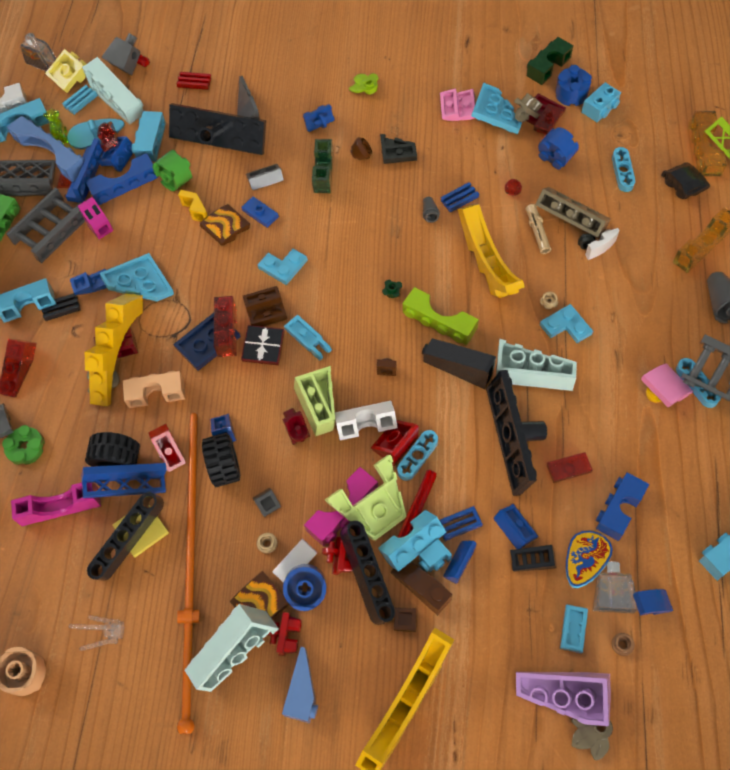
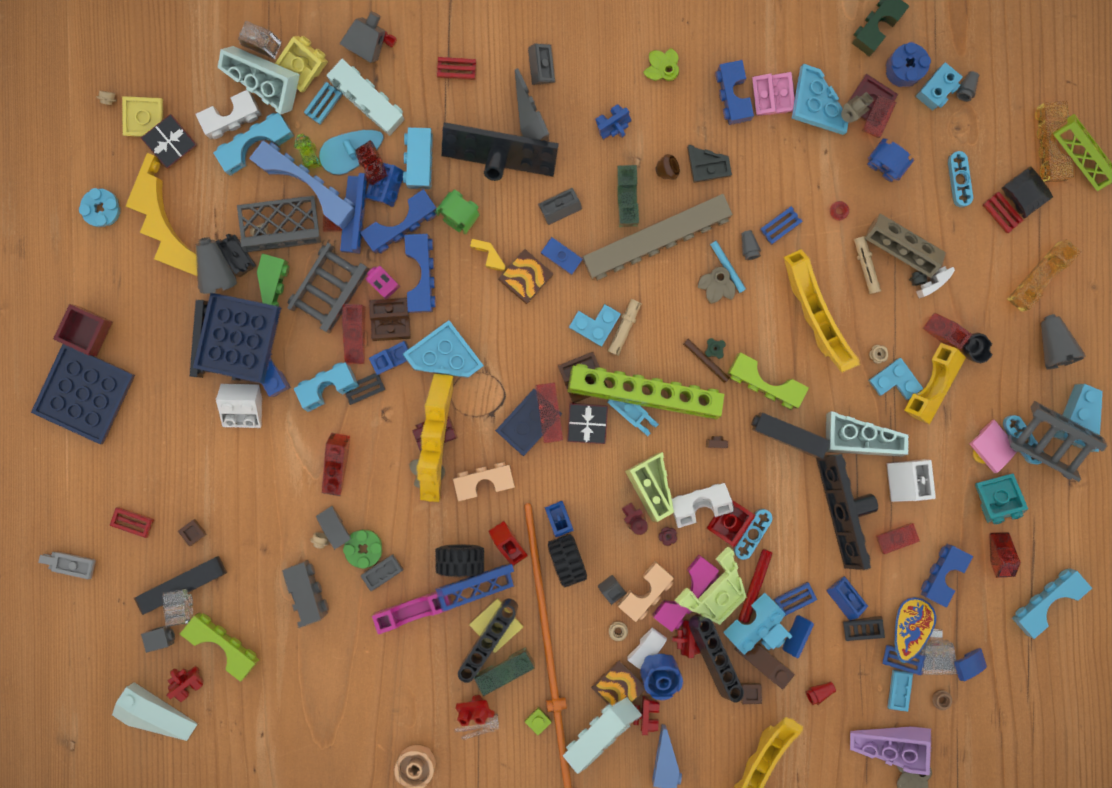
camera: 15 degrees left, 25 degrees up
(35, 468) = (382, 572): none -> dark grey plate
(36, 77) = (266, 79): none -> light aqua wedge
(61, 257) = (354, 333): none -> clear red slope
(97, 253) = (389, 319): none -> reddish brown slope
(97, 612) = (474, 710): none -> red hips
(128, 235) = (420, 298): none -> blue arch
(150, 567) = (505, 672): none -> clear green arch
(166, 635) = (538, 721): none -> lime plate
(264, 80) = (541, 64): none -> dark grey slope
(290, 515) = (635, 605): none -> light nougat arch
(312, 261) = (625, 326): none -> tan pin
(320, 316) = (713, 398): none -> lime brick
(330, 456) = (668, 531): none -> dark red plate
(346, 198) = (657, 236): none -> dark tan brick
(384, 300) = (707, 361): none -> reddish brown bar
(397, 240) = (717, 288): none -> dark tan plate
(409, 226) = (726, 264): none -> medium azure bar
(425, 111) = (736, 109): none -> blue arch
(482, 624) = (819, 693): none -> red cone
(582, 409) = (911, 480): none -> white slope
(593, 594) = (920, 664): none -> blue tile
(615, 282) = (947, 331): none -> clear red slope
(615, 308) = (946, 365): none -> yellow arch
(627, 104) = (968, 87): none -> dark grey cone
(644, 297) = (978, 348): none -> black hair
(666, 194) = (1009, 209): none -> red tile
(678, 434) = (1001, 499): none -> teal plate
(683, 490) = (1003, 555): none -> clear red slope

